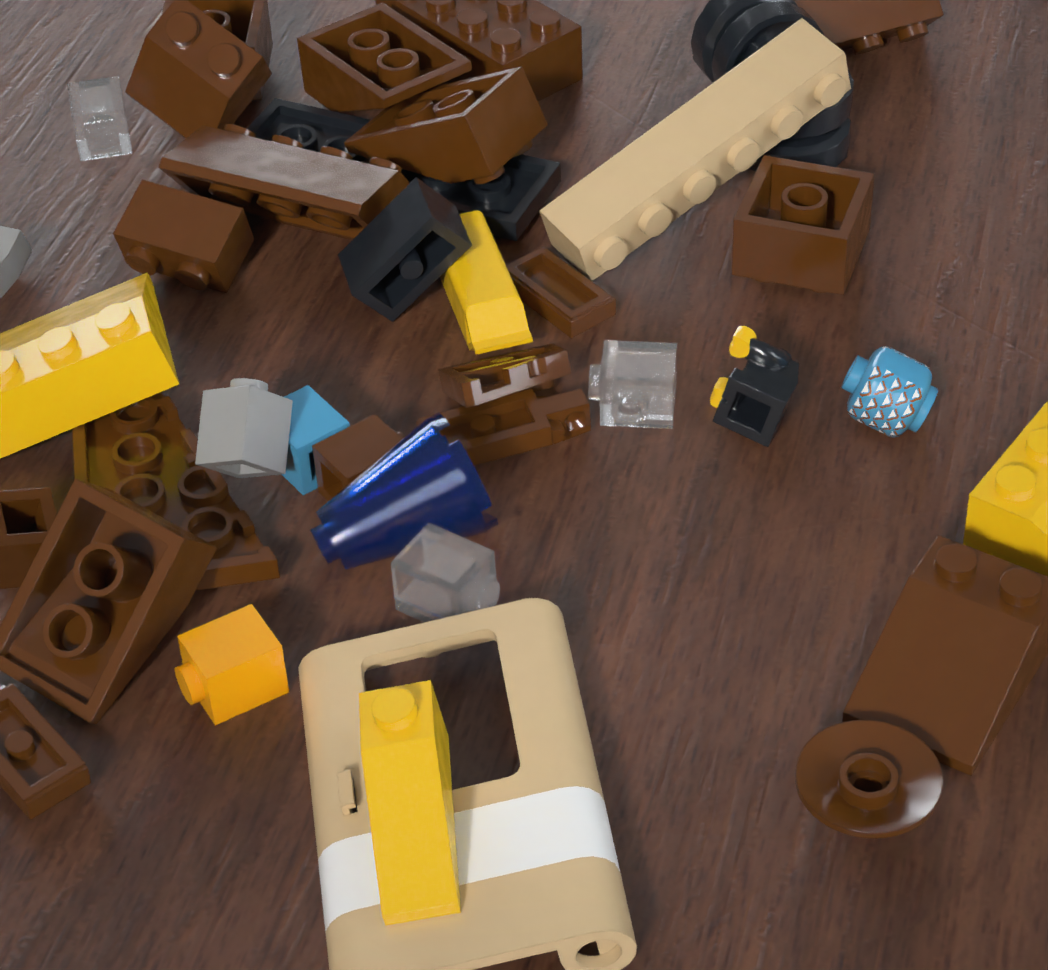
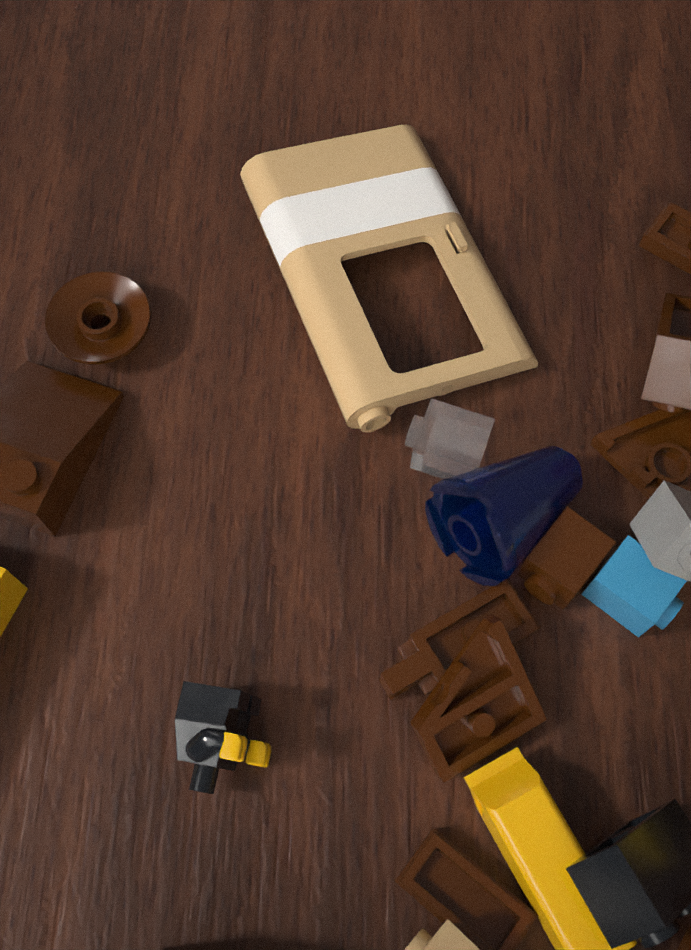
camera: 165 degrees right, 25 degrees up
(231, 665) = (584, 335): light orange brick -> none
(410, 802) = (409, 216): yellow slope -> none
(635, 384) = (343, 722): clear brick -> none
(889, 391) = (85, 752): dark azure head -> none

